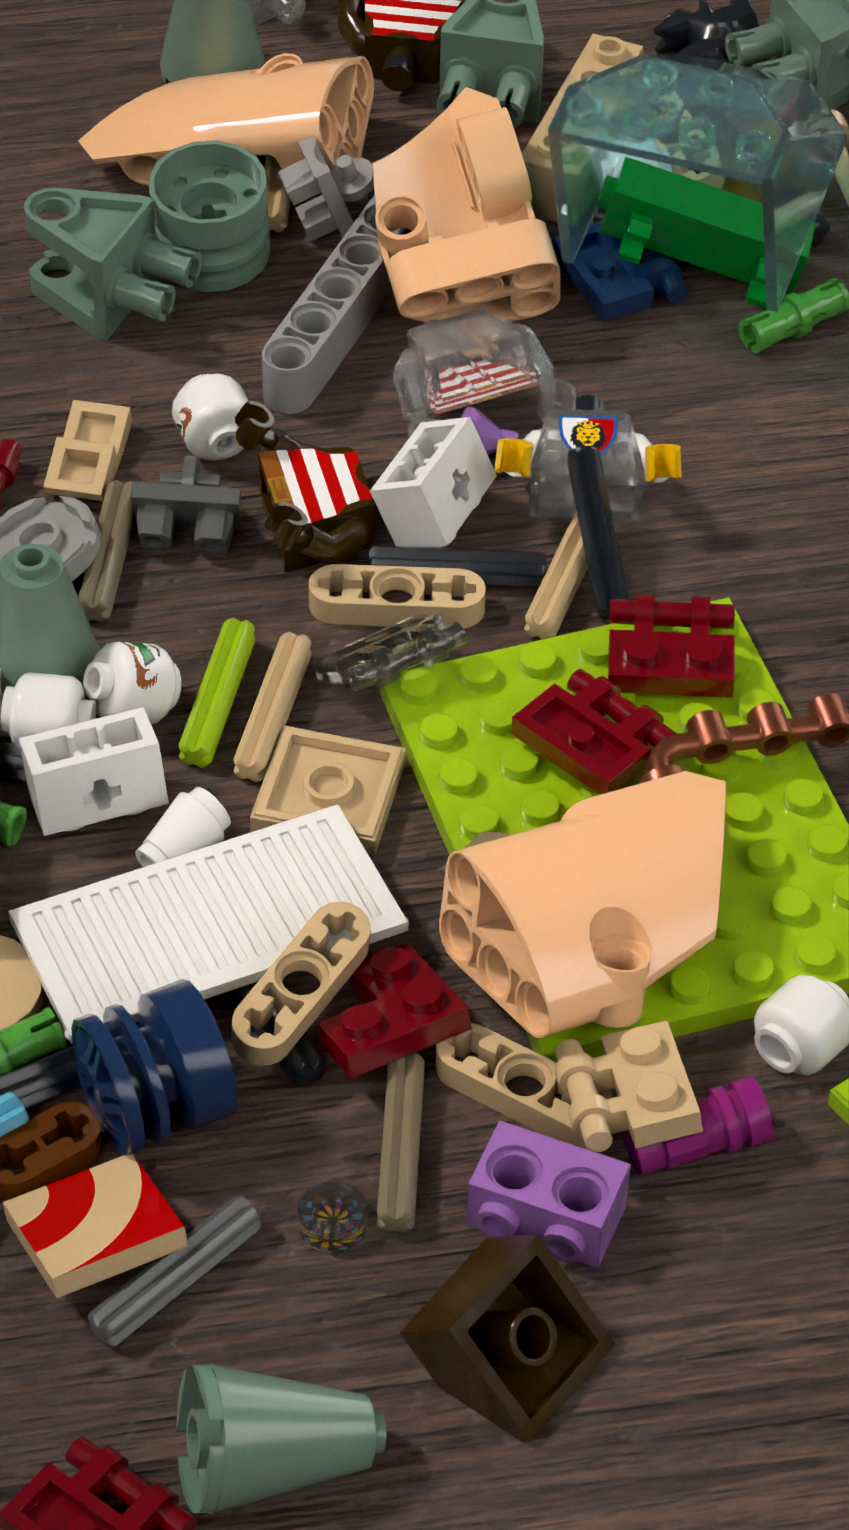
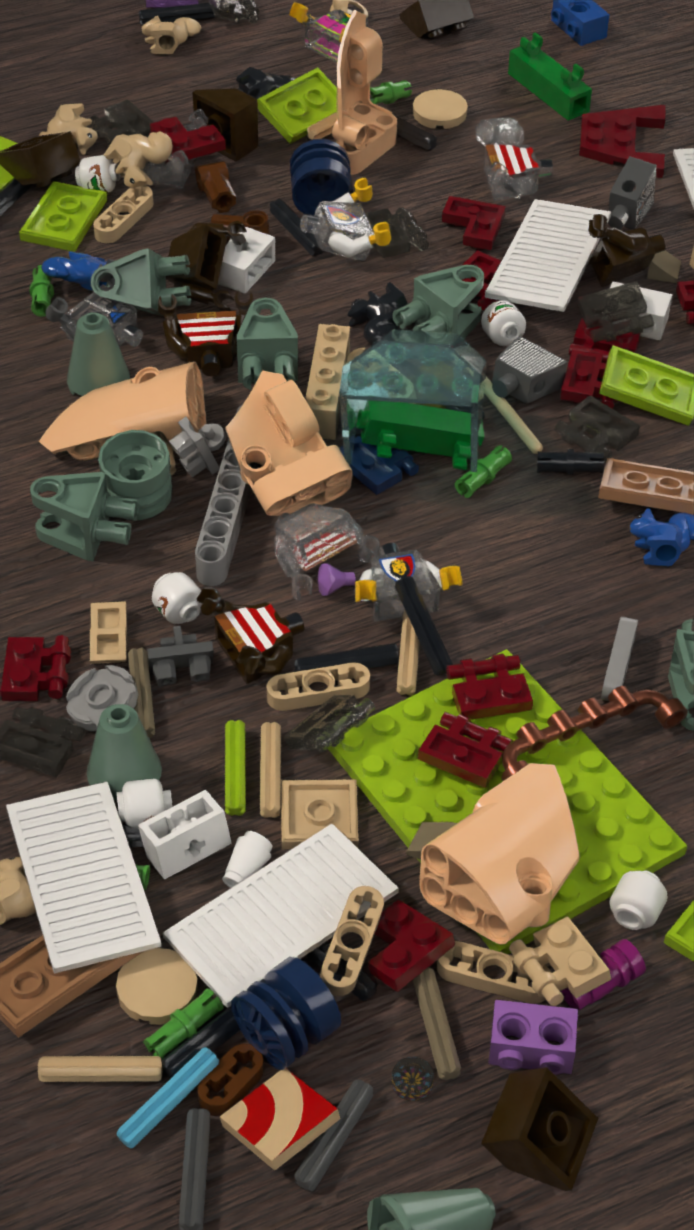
camera: 15 degrees left, 0 degrees up
(133, 677) = (187, 773): white head -> none
(433, 483) = (321, 614): white brick -> none

